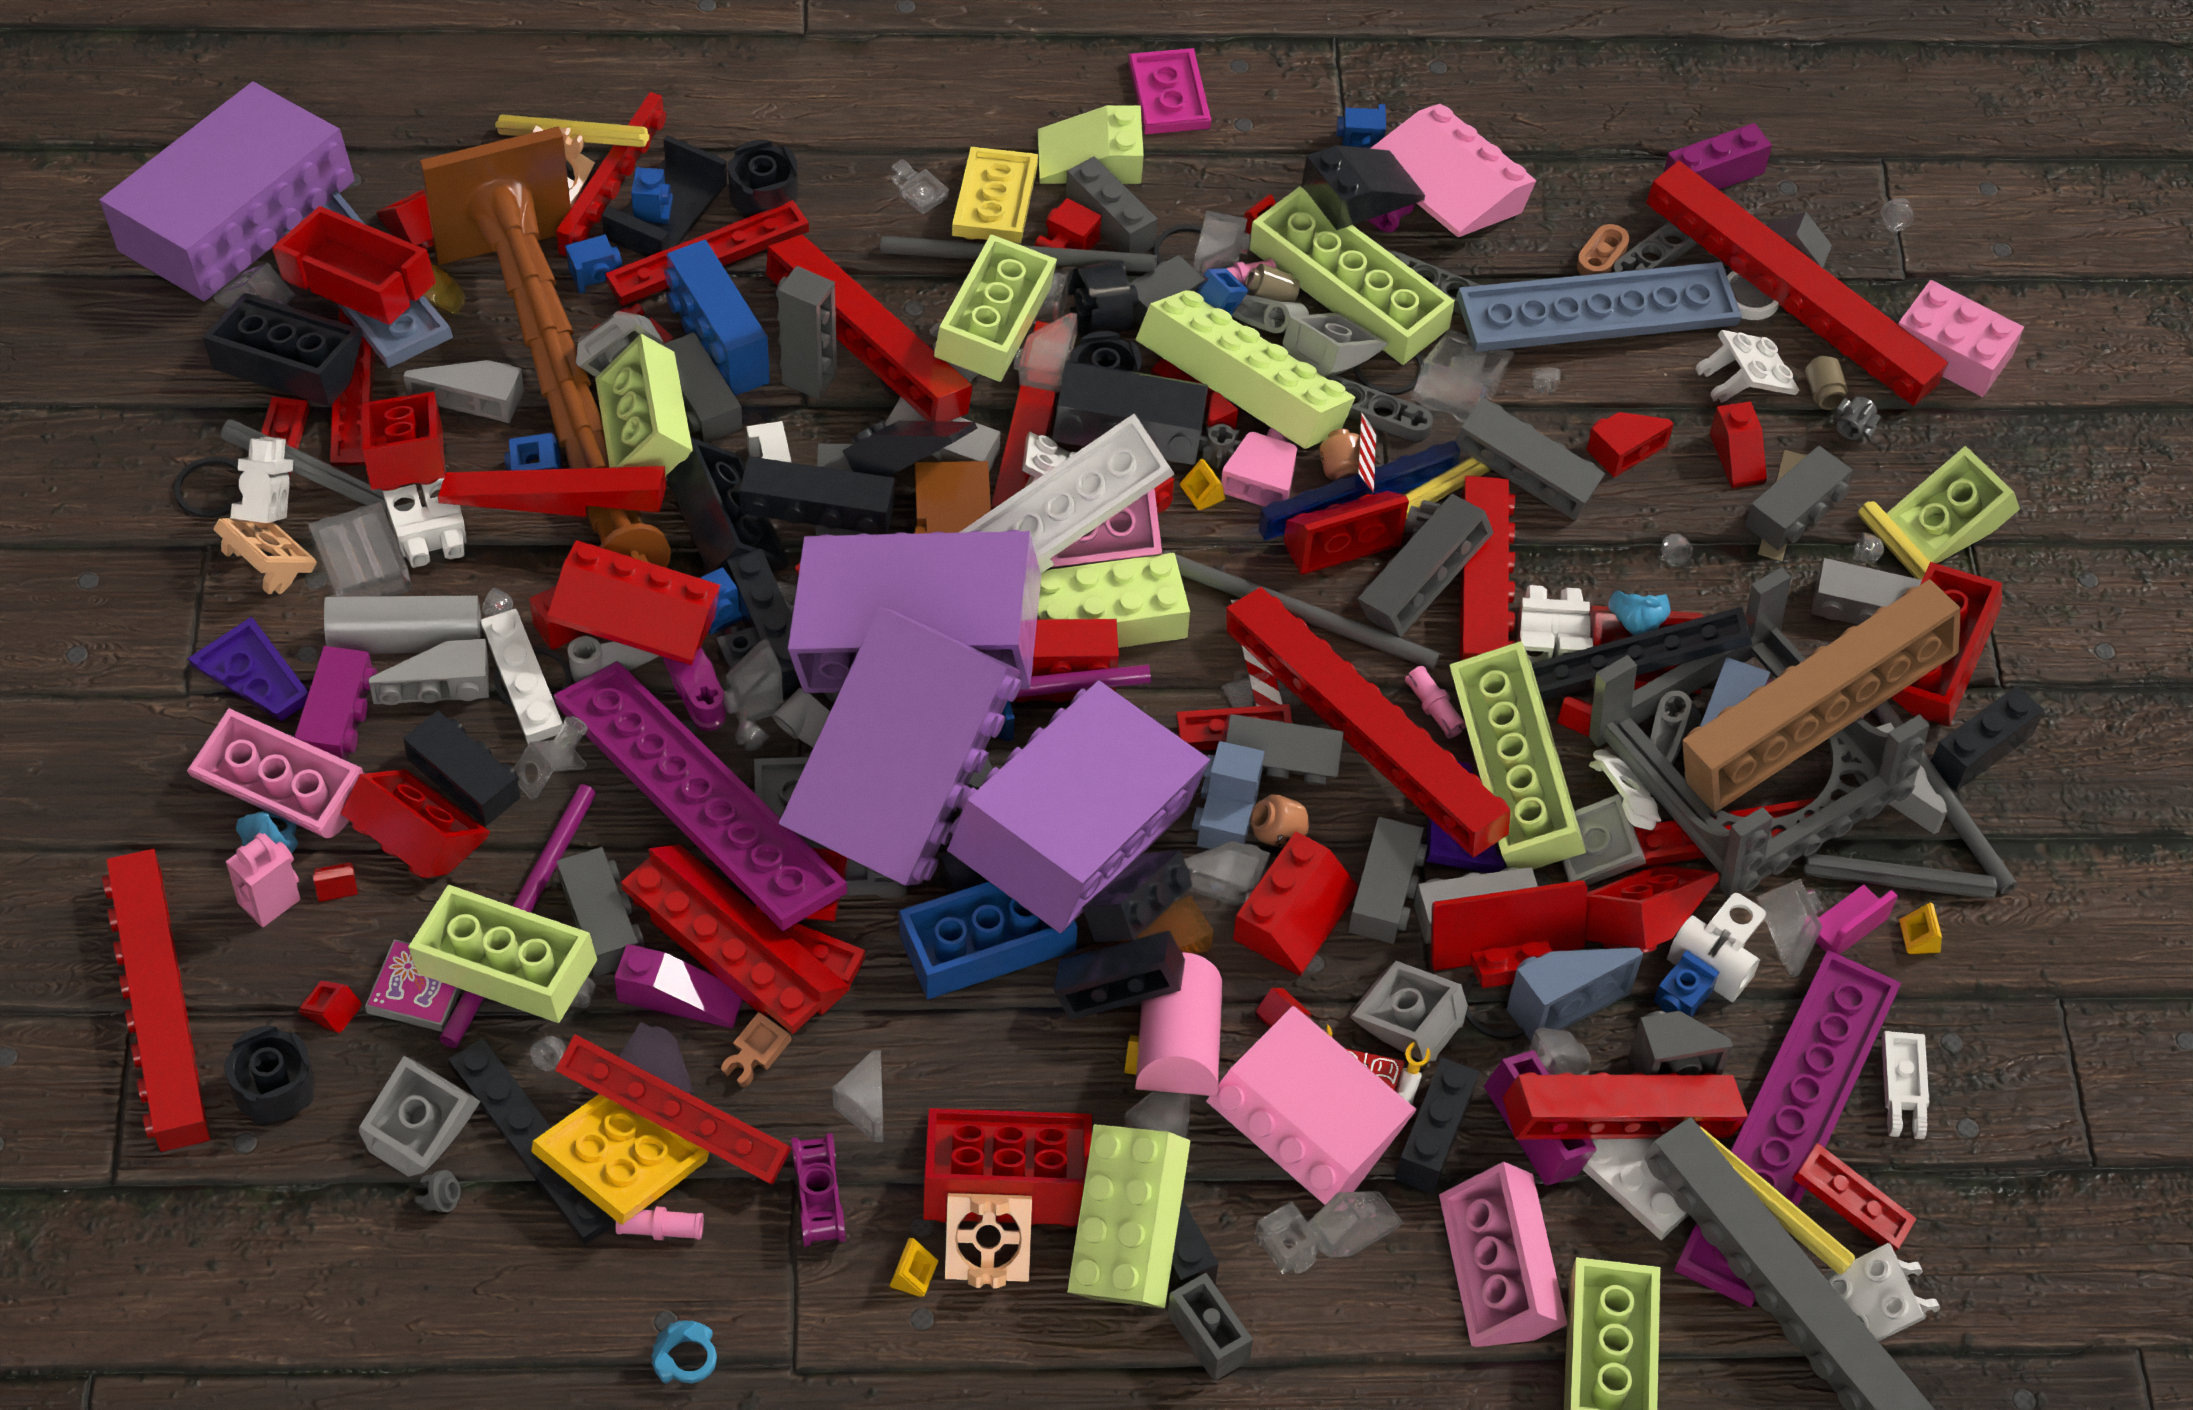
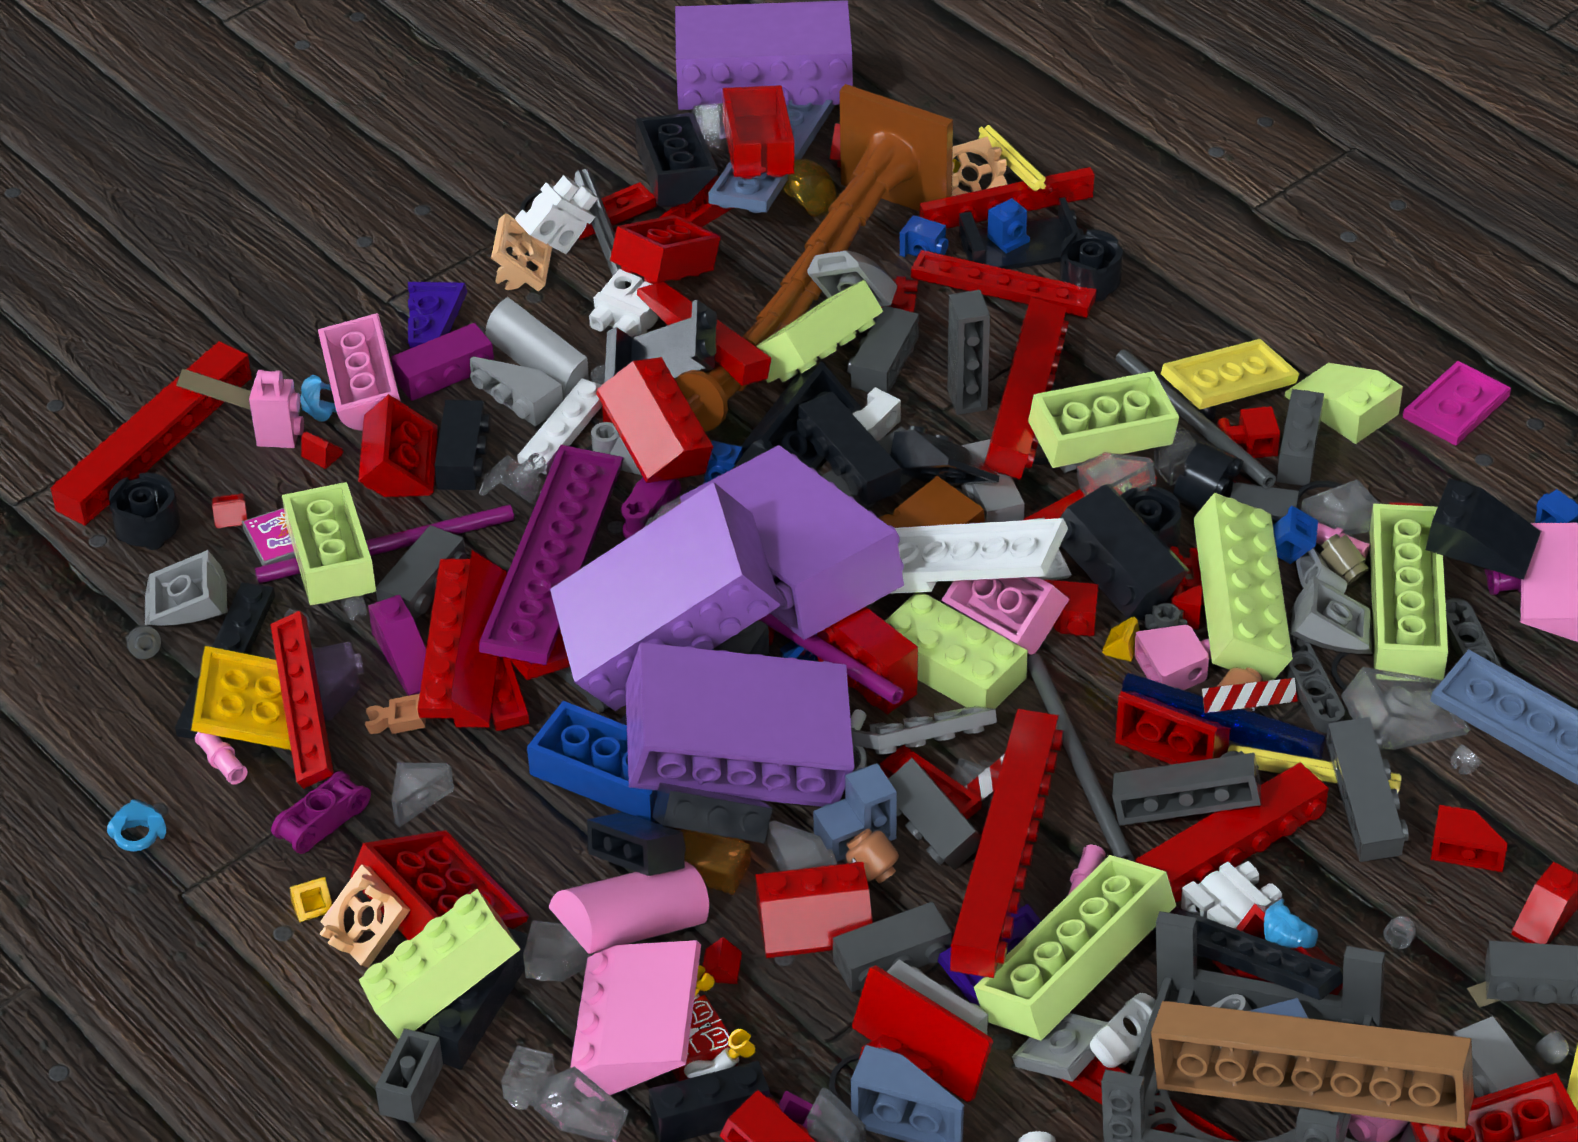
camera: 55 degrees right, 10 degrees down
(180, 902) = (215, 388): none -> dark tan sticker
(360, 554) = (565, 296): clear brick -> none
(471, 387) = (756, 256): light grey slope -> none
(527, 448) = (735, 313): blue brick -> none
(537, 540) = (682, 345): none -> panel
(717, 316) = (927, 329): blue brick -> none
(918, 189) = (1191, 340): clear plate -> none
(1178, 689) = (916, 730): none -> light grey wing
(1412, 1007) = (791, 1031): light grey slope -> none
(1645, 906) = (1026, 1102): red slope -> none

